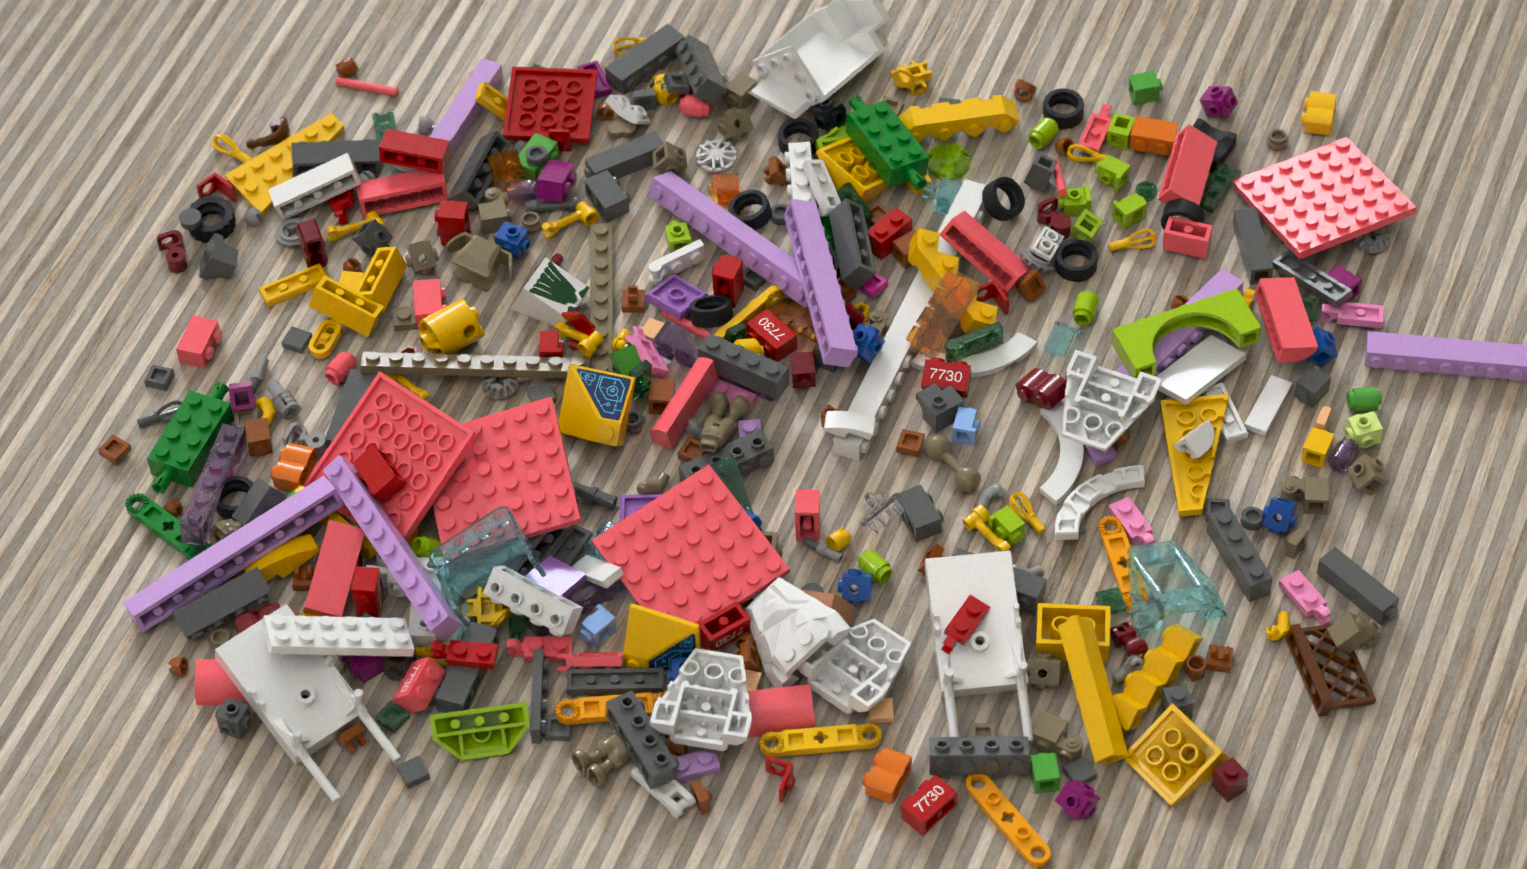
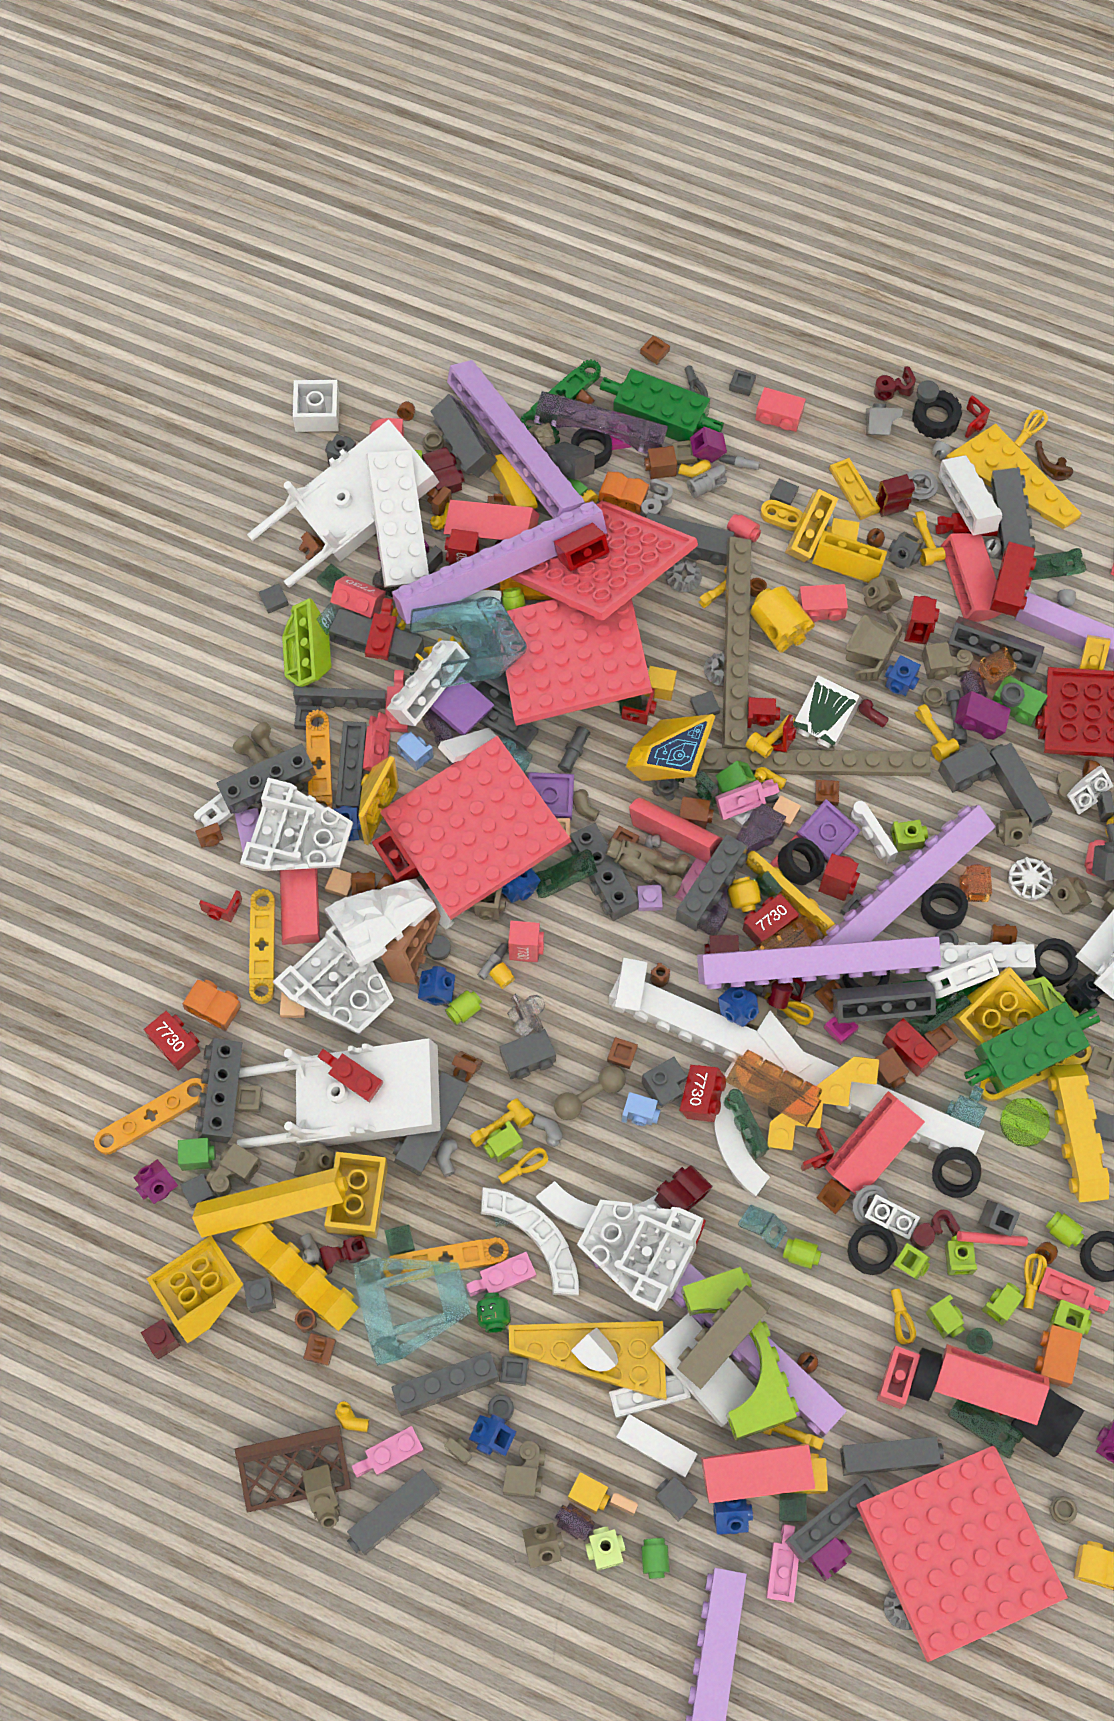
camera: 90 degrees right, 15 degrees up
(172, 744) = (316, 405): none -> white brick
(404, 319) = (807, 579): dark tan plate -> none
(898, 316) = (783, 1044): none -> white sticker
(1169, 522) = (493, 1313): none -> green head
(1177, 336) = (723, 1336): none -> dark tan brick

